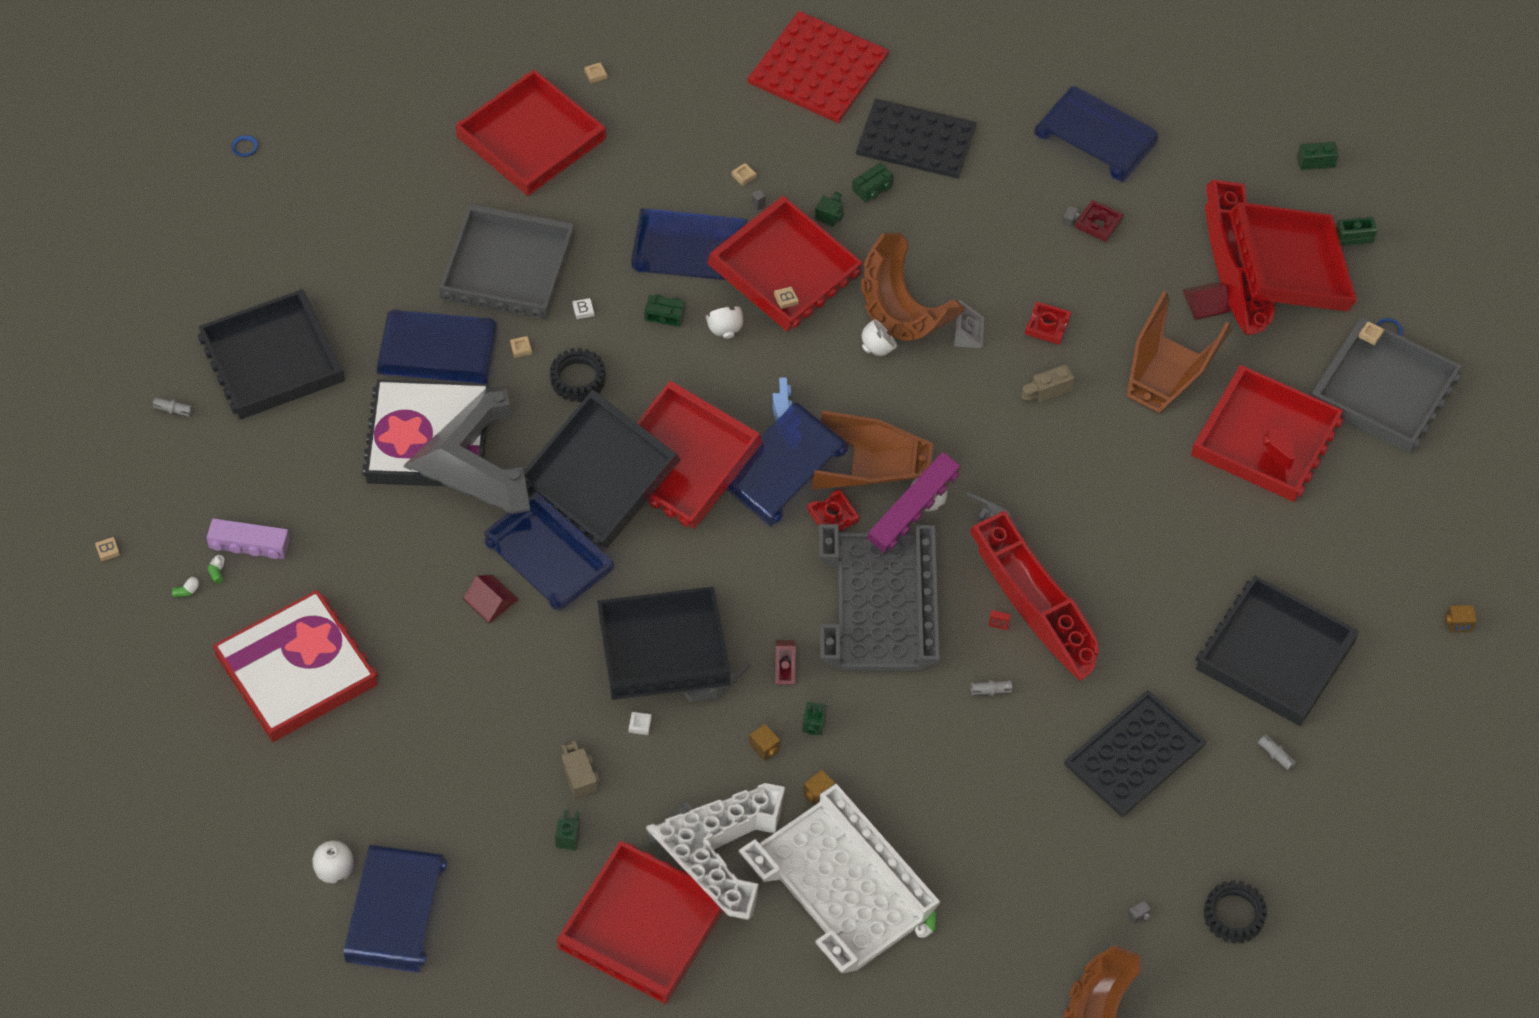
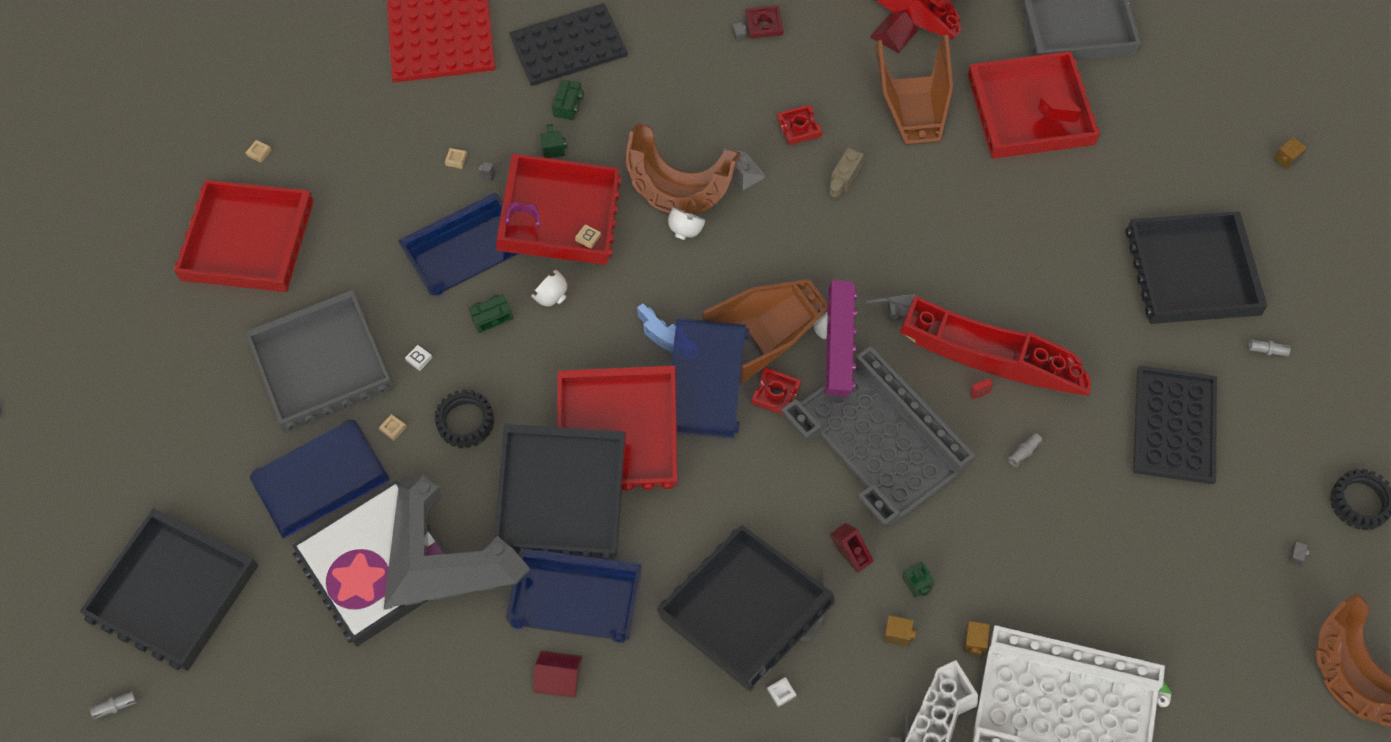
camera: 35 degrees left, 5 degrees up
(759, 248) = (517, 207): none -> magenta cap

